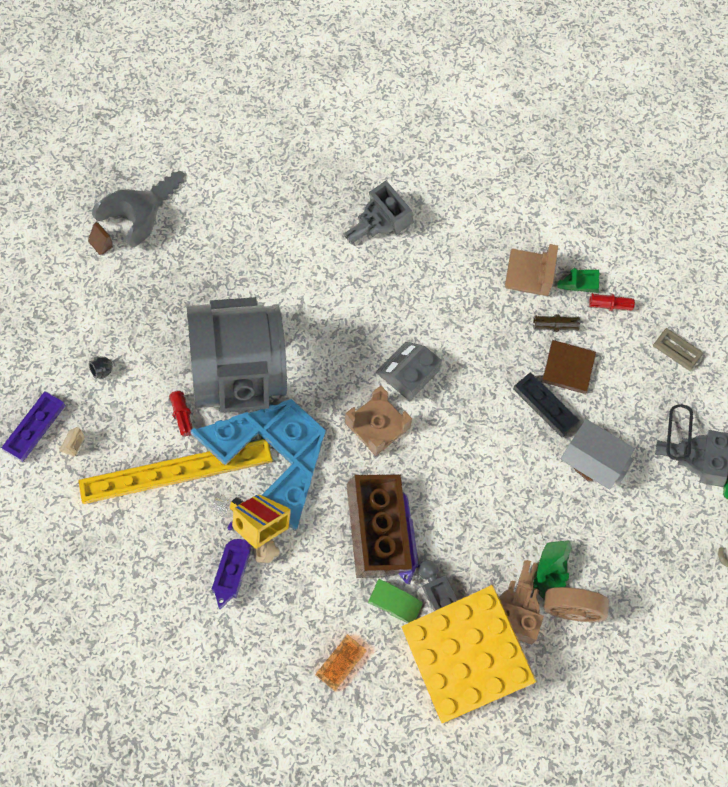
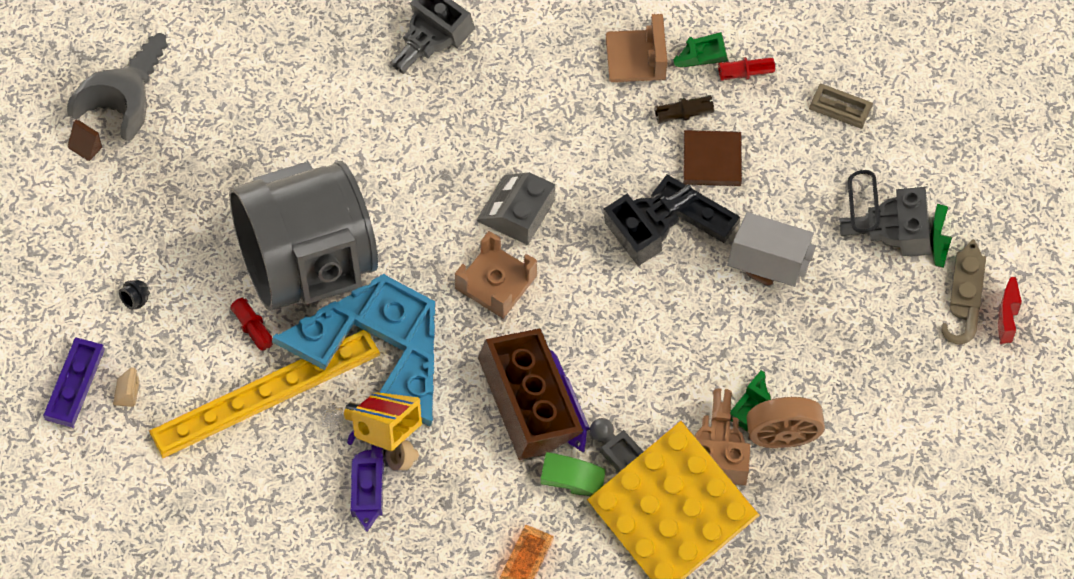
camera: 10 degrees left, 5 degrees down
(505, 407) = (646, 221): none -> black brick
(552, 559) = (745, 381): green slope -> none

